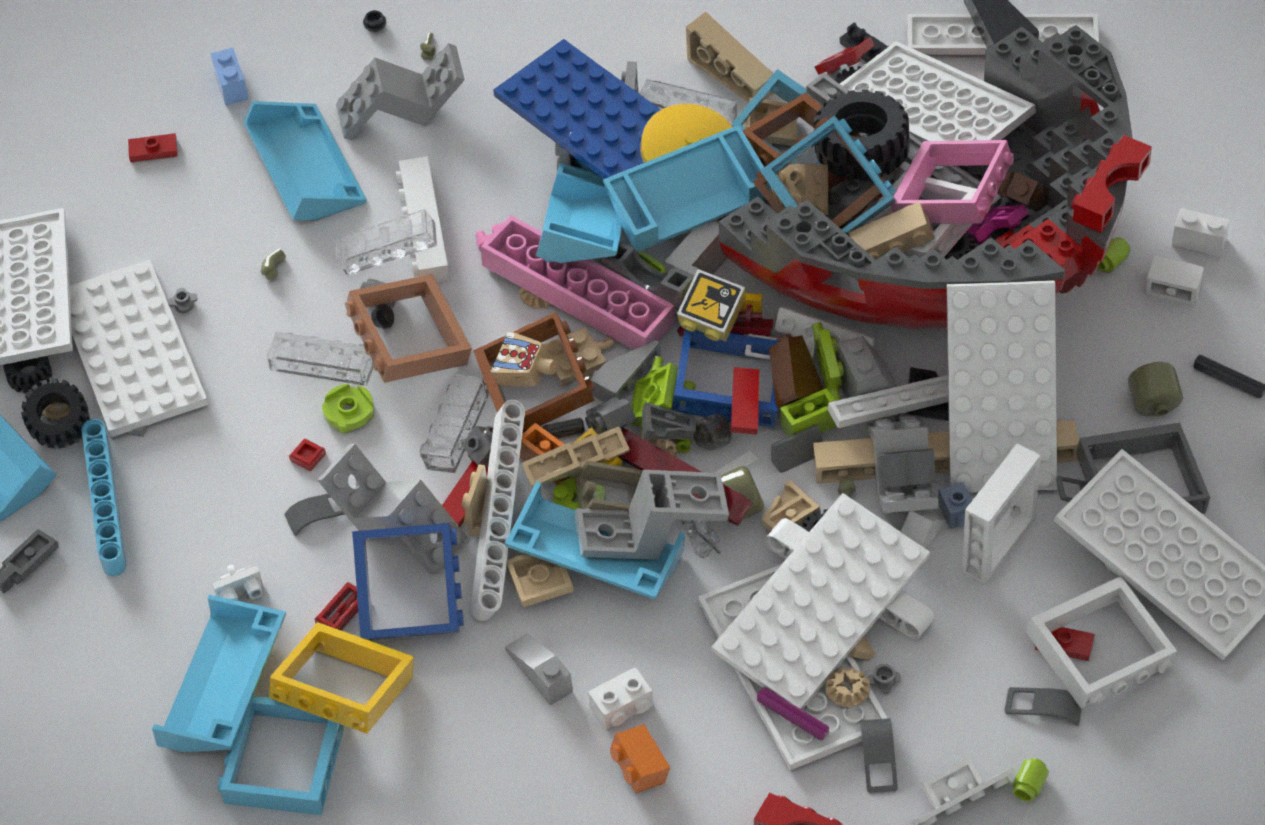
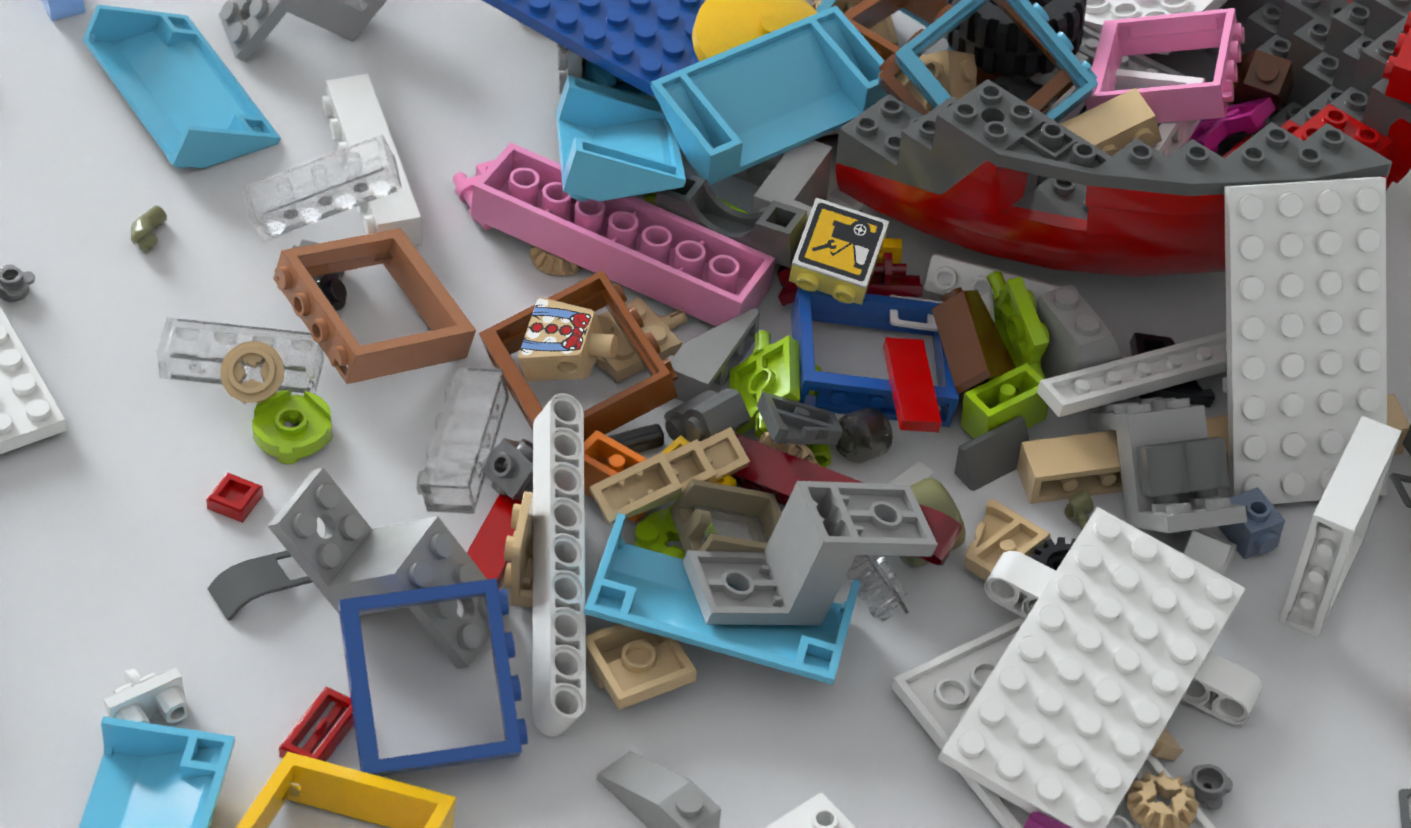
camera: 15 degrees left, 5 degrees down
(313, 373) = (252, 354): none -> tan gear

